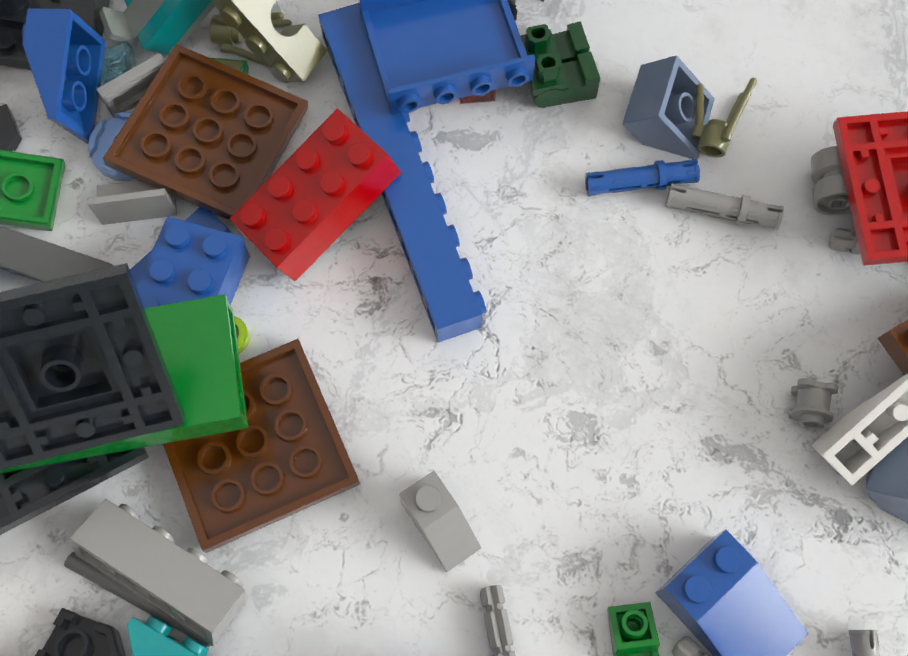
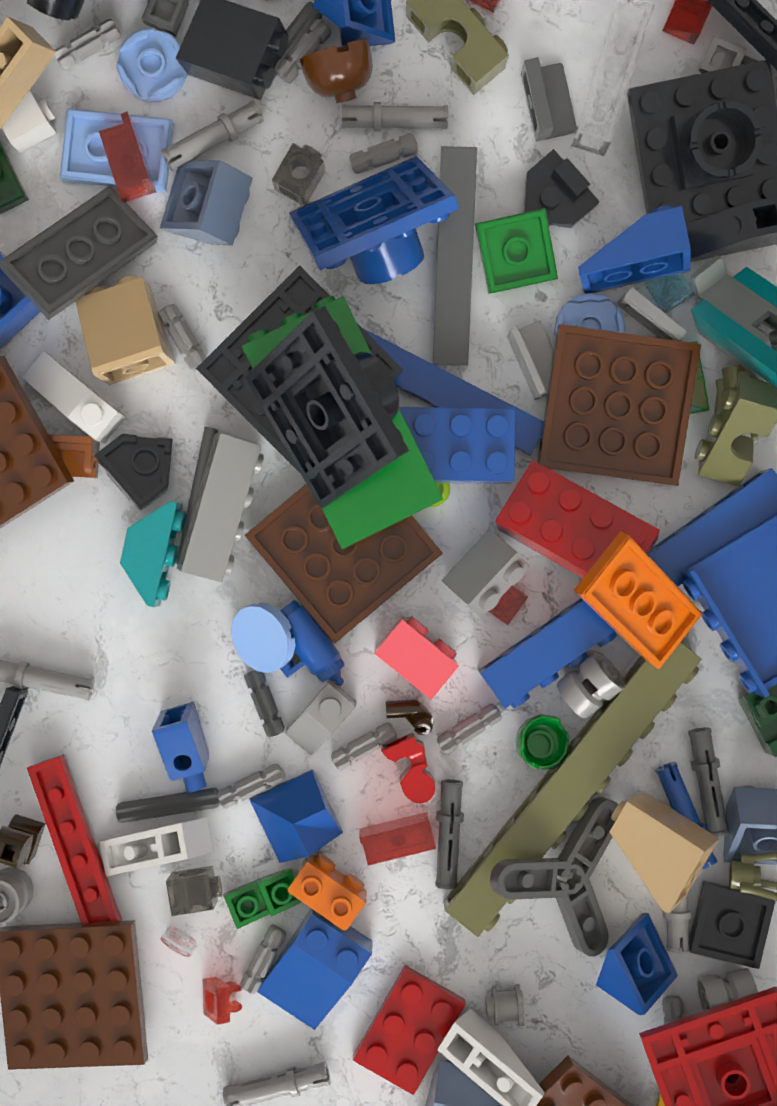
camera: 75 degrees right, 20 degrees up
(325, 560) = (262, 637): none -> light blue tile
(333, 299) = (486, 573): none -> light grey brick
(348, 512) = (312, 646): none -> blue piece
(370, 296) = (509, 605): none -> clear red plate
(398, 388) = (416, 656): none -> coral brick
(399, 141) = (638, 600): none -> orange plate
(404, 585) = (264, 703): none -> dark grey axle
(462, 419) = (414, 712): none -> dark brown arm
(486, 483) = (363, 746): none -> light grey axle
(487, 238) = (586, 688): none -> light grey wheel
(497, 365) = (469, 728): none -> light grey axle
(529, 291) = (542, 742): none -> green hair
(538, 435) = (415, 780): none -> red leg
(549, 584) = (296, 817): none -> blue slope
(587, 282) = (569, 786): none -> olive brick
(600, 474) = (397, 838): none -> clear red panel
(608, 415) = (449, 830): none -> dark grey pin
(614, 149) = (708, 780): none -> dark grey pin
(645, 566) = (328, 890): none -> orange bracket
(667, 190) = (661, 847): none -> tan slope
(673, 323) = (576, 898): none -> dark grey piece
(763, 163) = (731, 925): none -> black plate
(794, 259) = (637, 967): none -> blue slope
(825, 522) = (408, 1029): none -> red plate

